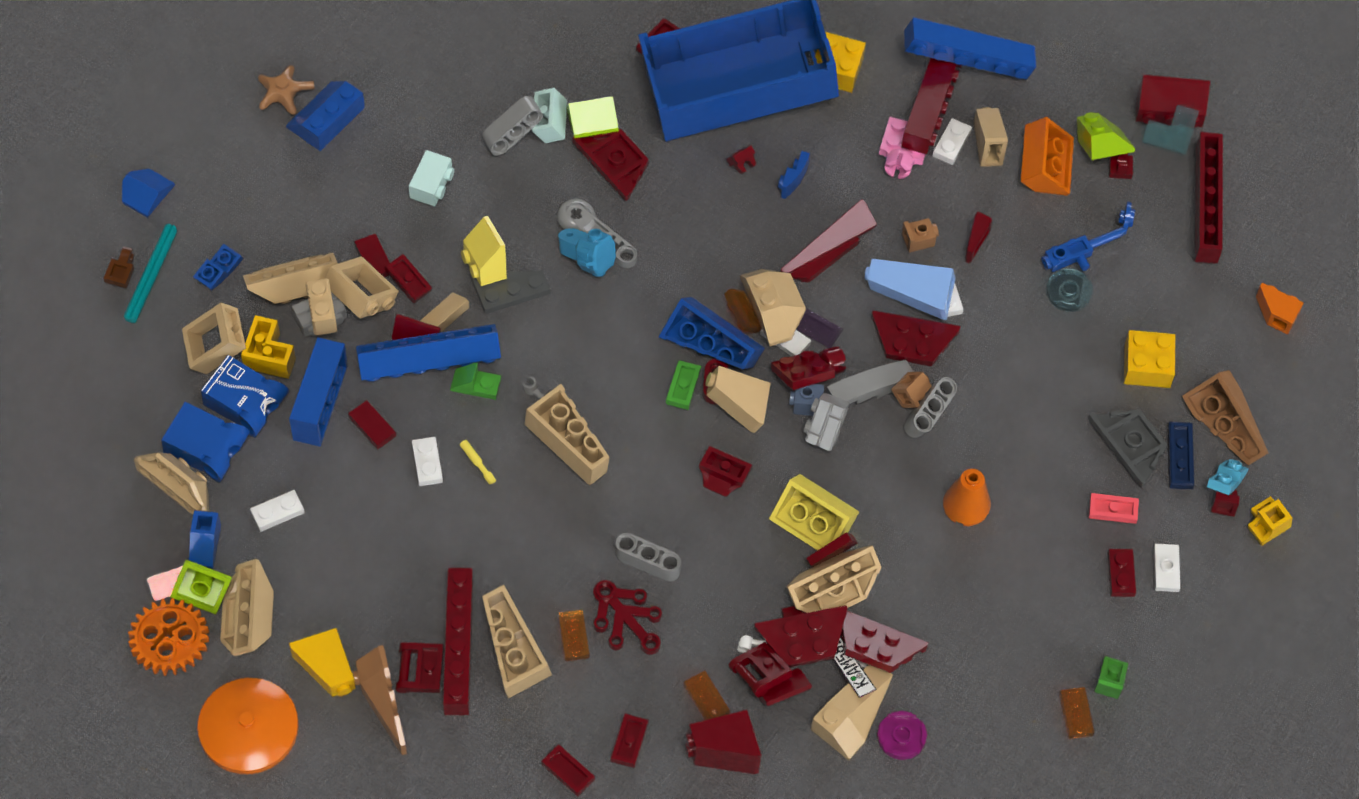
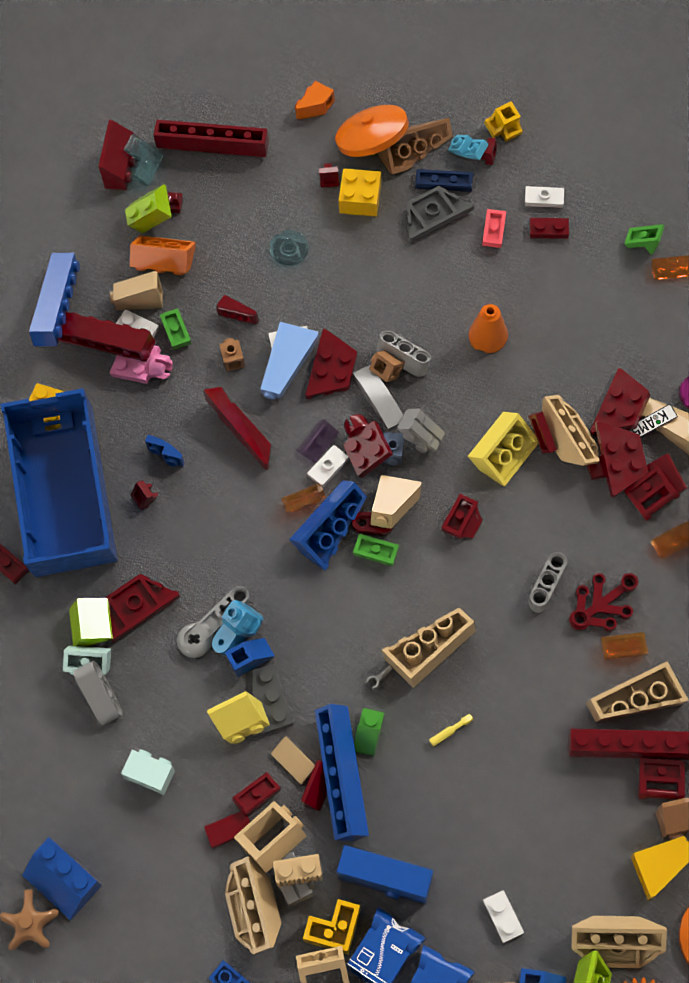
camera: 80 degrees left, 5 degrees up
(372, 424) = (411, 827): dark red tile -> none
(427, 461) = (450, 776): white plate -> none
(556, 263) = (249, 655): none -> blue slope
(747, 642) = (624, 507): white hand -> none
(774, 303) = (296, 471): tan wedge -> none
(949, 177) = (175, 329): none -> bright green plate
(1080, 248) = (252, 233): blue piece -> none
(1171, 323) = (328, 176): none -> dark red tile
(1234, 365) = (372, 130): none -> orange dish

